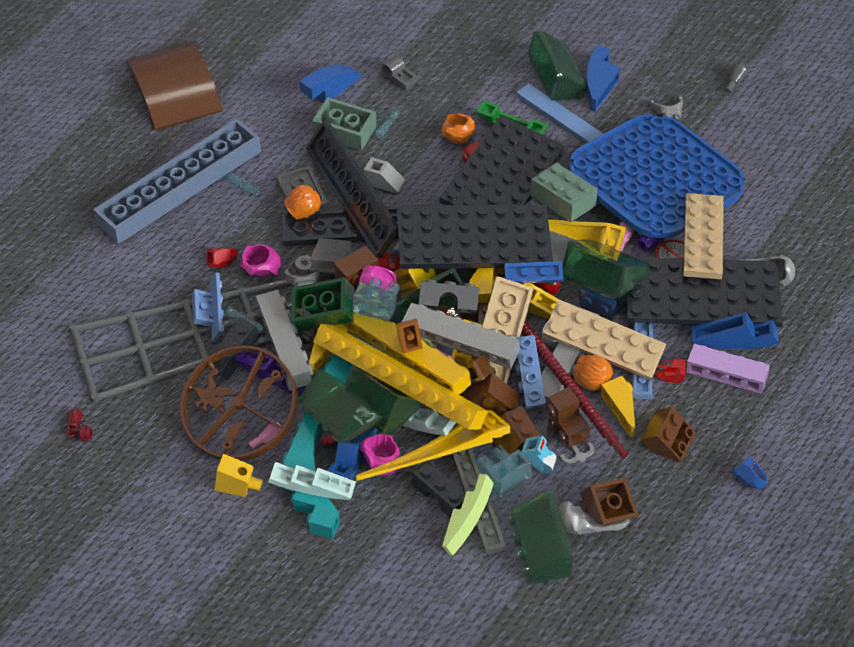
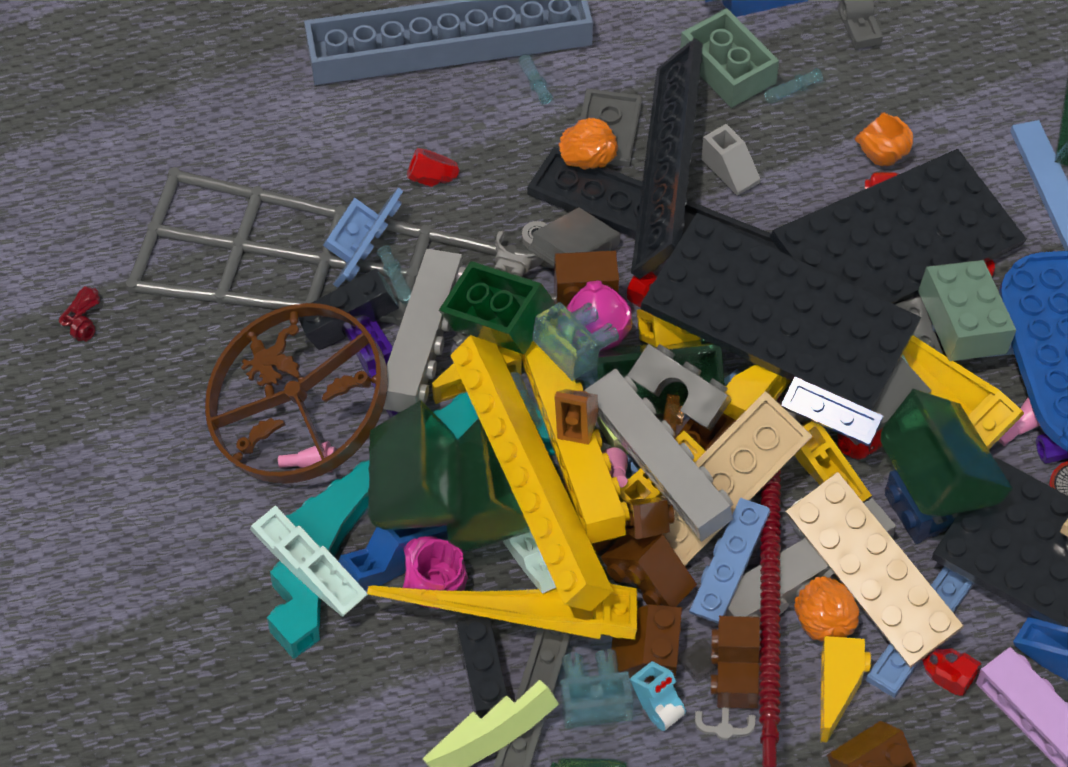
camera: 30 degrees right, 5 degrees up
(236, 477) = (220, 497): yellow torso -> none
(260, 260) = (473, 200): dark pink helmet -> none
(491, 112) = (949, 136): green slope -> none

